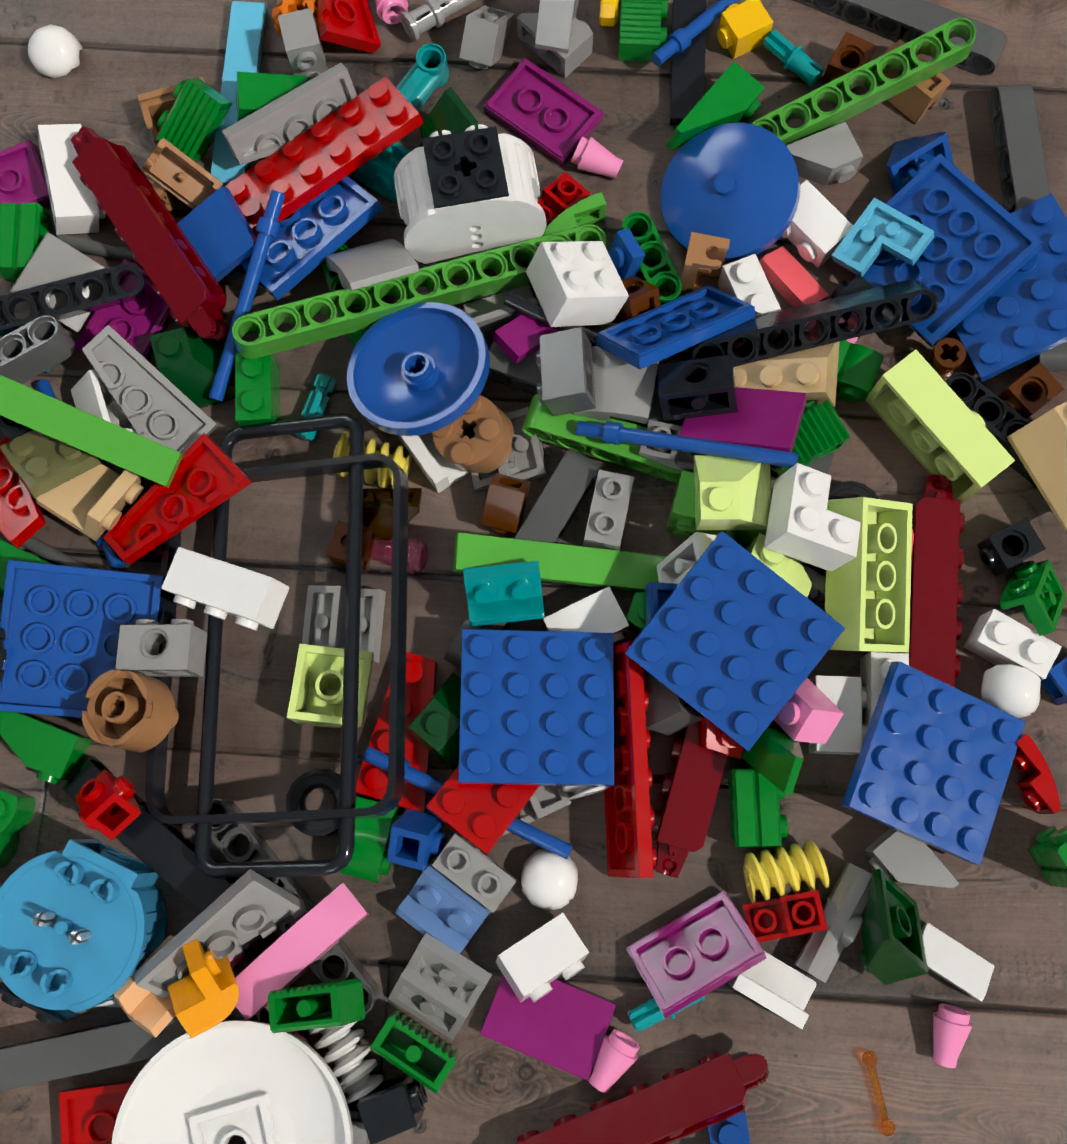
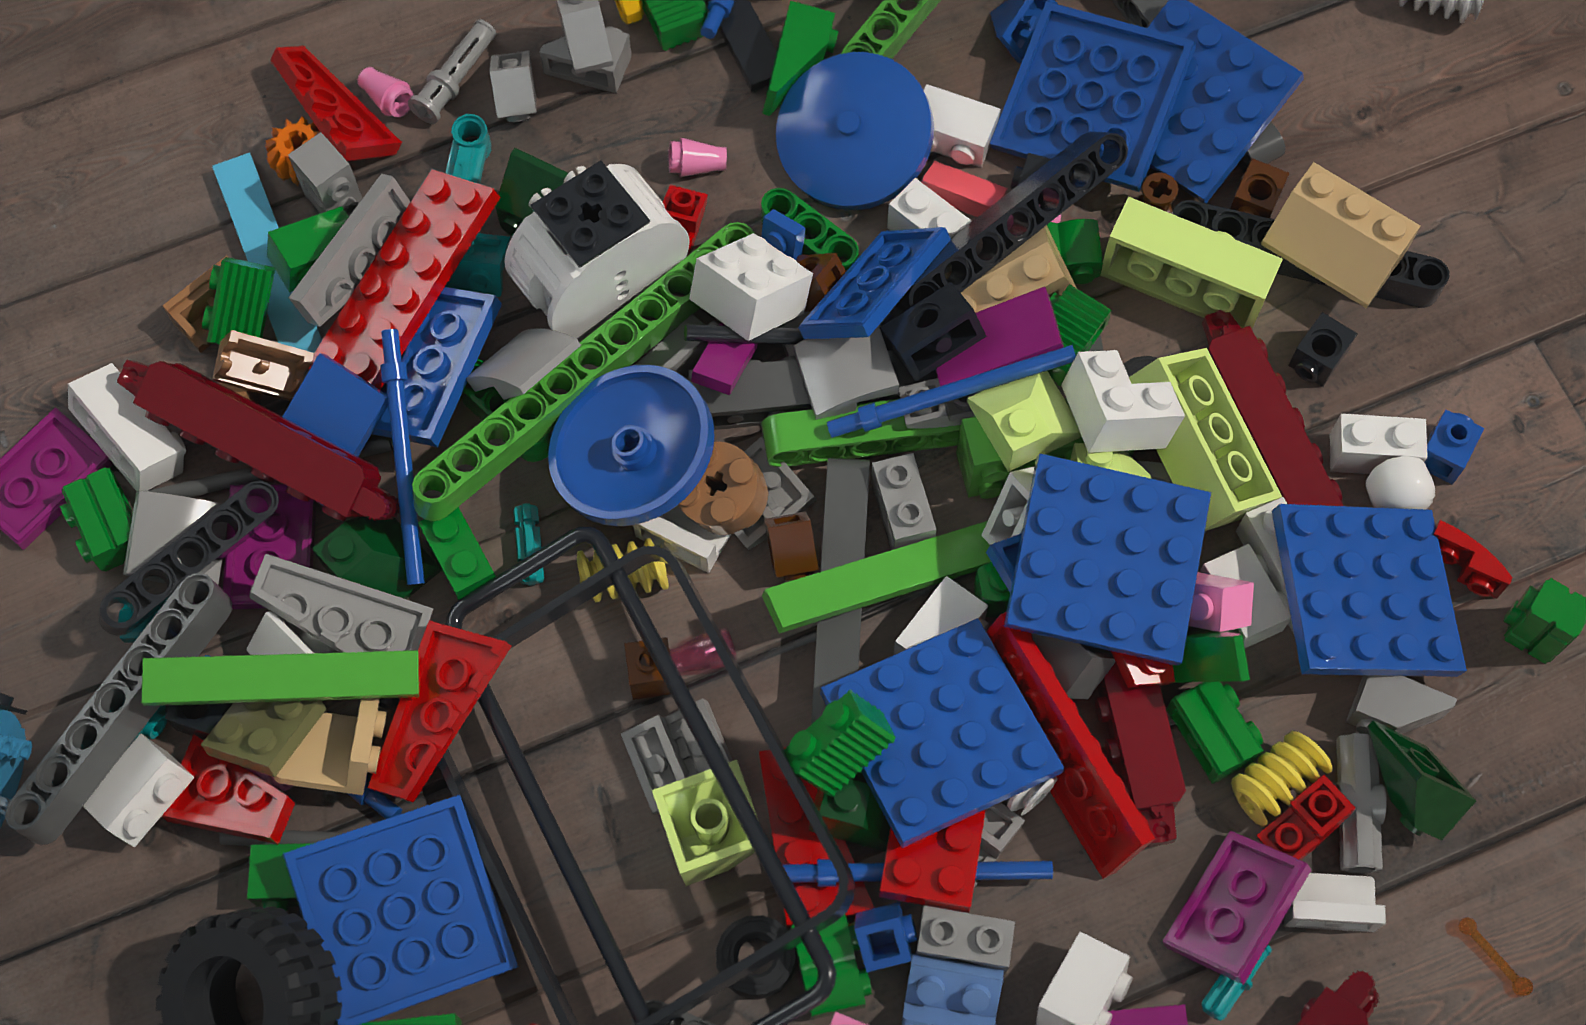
camera: 30 degrees left, 10 degrees down
(54, 51) = (33, 303): white hair -> none
(129, 710) = (528, 955): medium nougat brick -> none
(181, 657) = (531, 869): light grey brick -> none
(225, 589) = (544, 767): white brick -> none
(379, 510) = (668, 611): dark brown slope -> none
(447, 683) = (839, 743): none -> green brick
(504, 593) = (843, 630): teal bracket -> none
(543, 111) = (614, 132): magenta tile -> none
(549, 880) = (1044, 912): white hair -> none
(566, 372) = (789, 377): brick -> none
(585, 212) = (712, 218): bright green slope -> none
(703, 259) = (864, 206): medium nougat hinge -> none
(827, 155) = (934, 51): light grey slope -> none
(881, 229) = (1029, 98): medium azure plate -> none
(950, 1033) = (1531, 857): bright pink cone -> none
(956, 963) = (1500, 786): white slope -> none
(1038, 591) = (1376, 378): green bracket -> none

